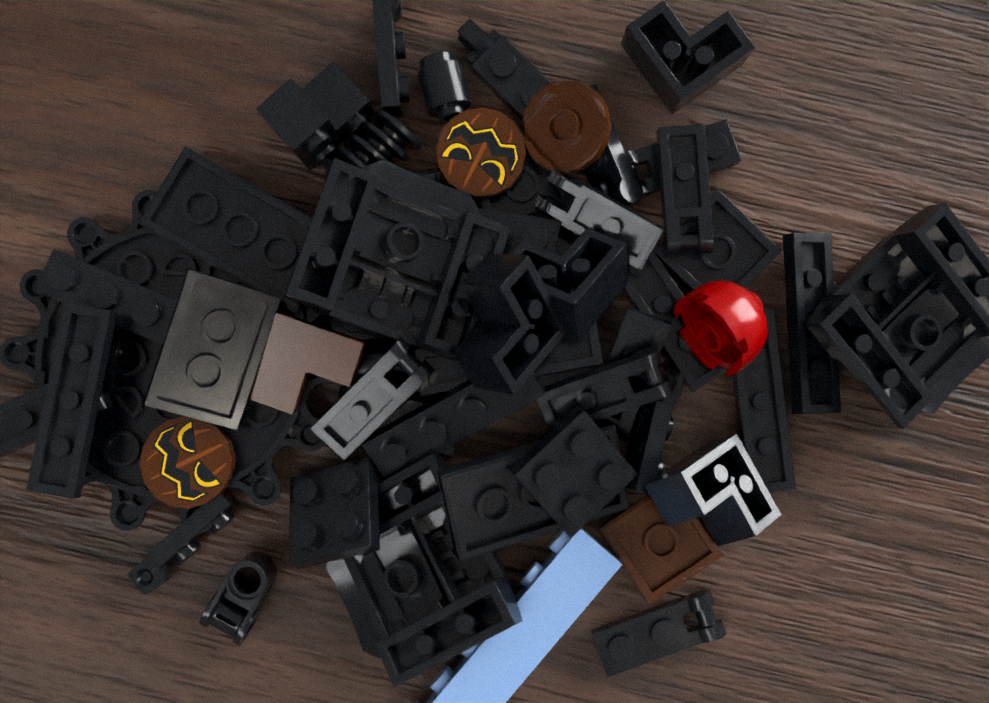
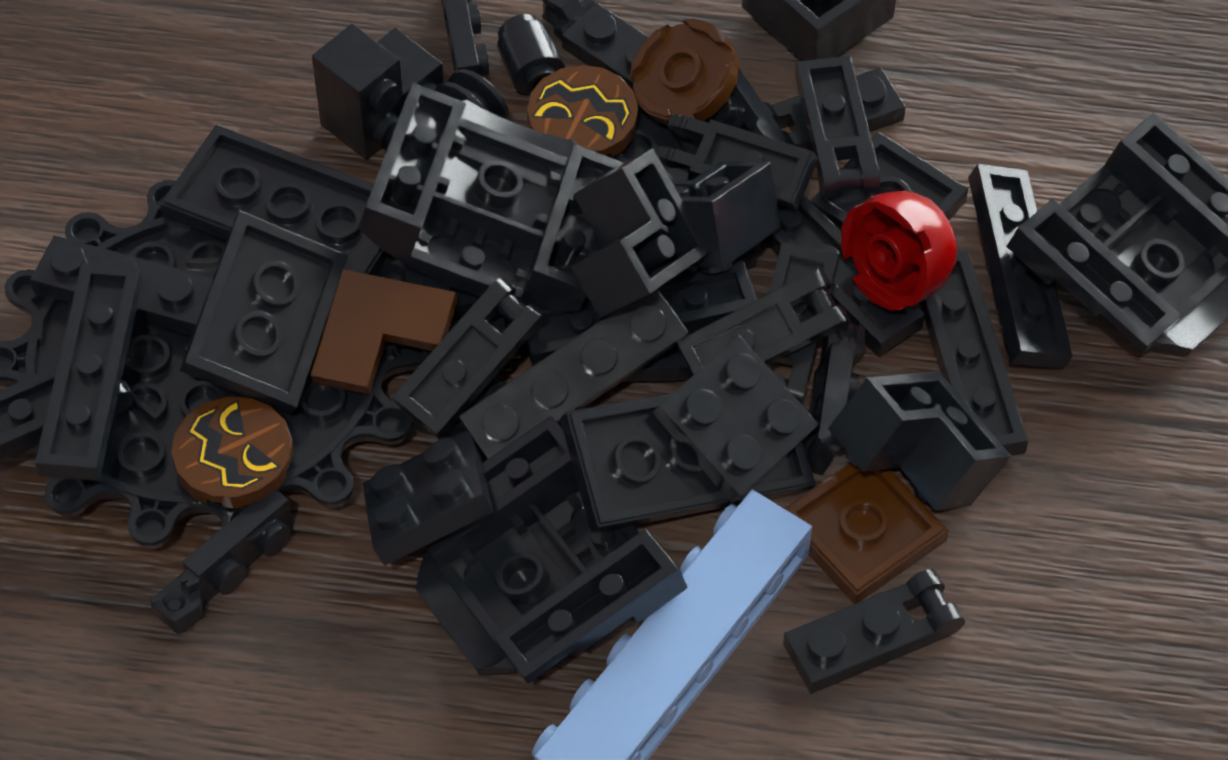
camera: 10 degrees left, 30 degrees down
(236, 602) = (301, 629): black piece -> none

